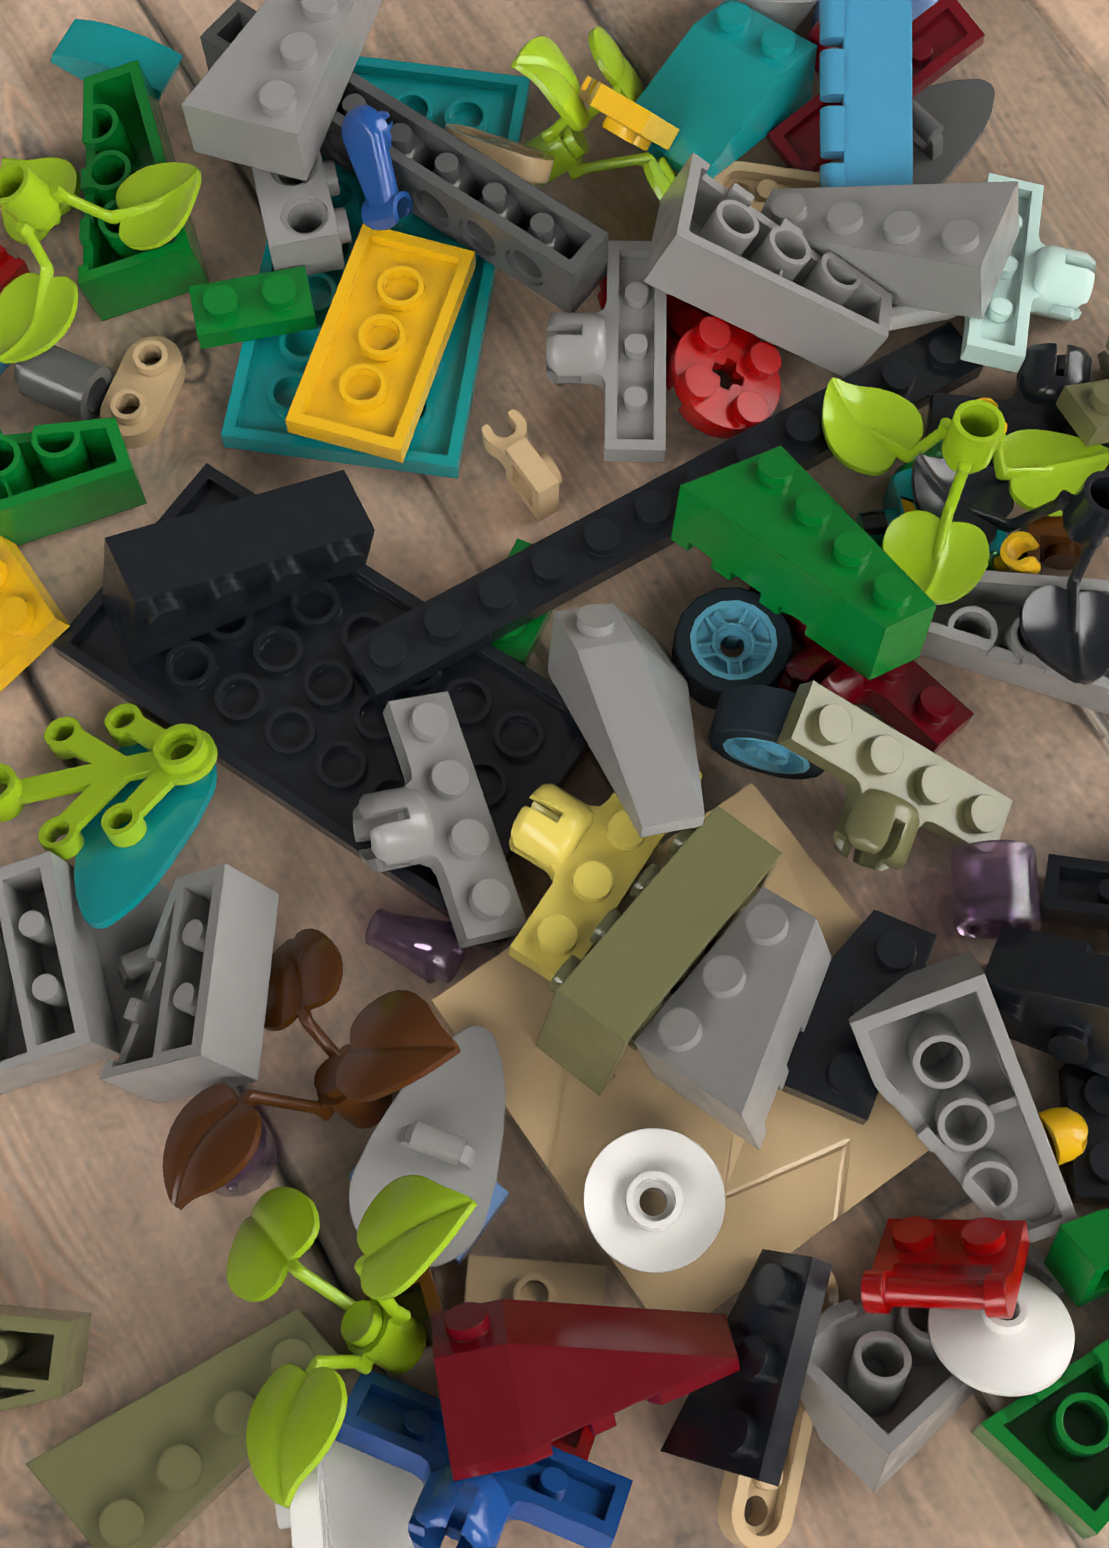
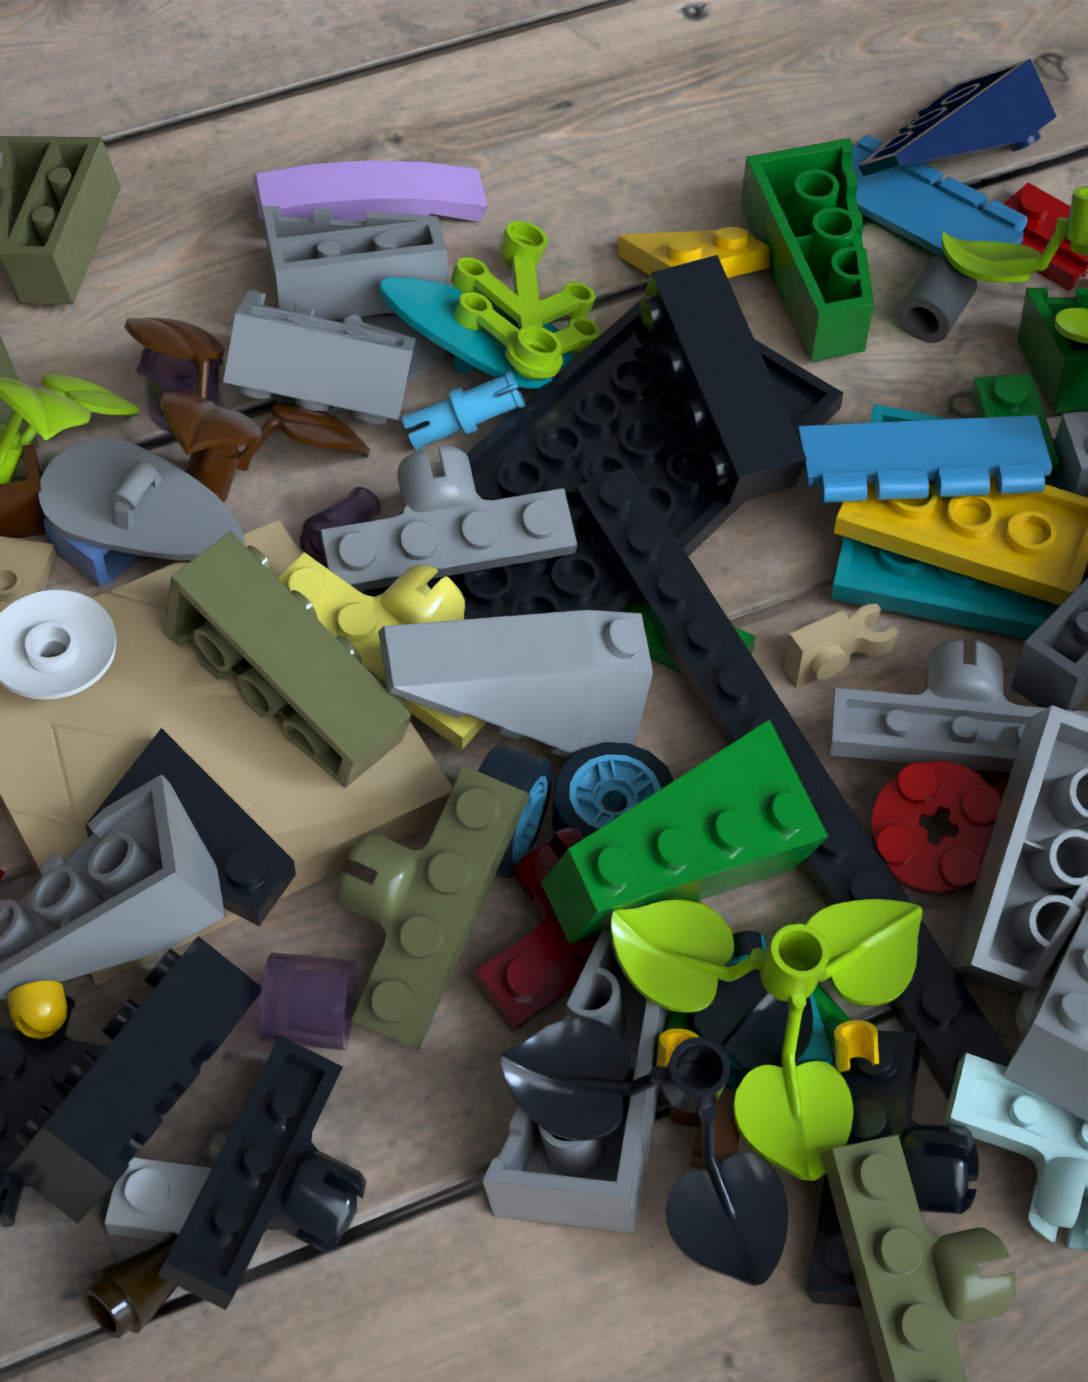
camera: 95 degrees right, 15 degrees down
(146, 386) = (931, 361): tan plate -> none
(253, 827) = (463, 410): none -> medium azure pin
(325, 370) = (908, 454): none -> dark azure windscreen
(739, 1013) = (200, 712): light grey wedge -> none

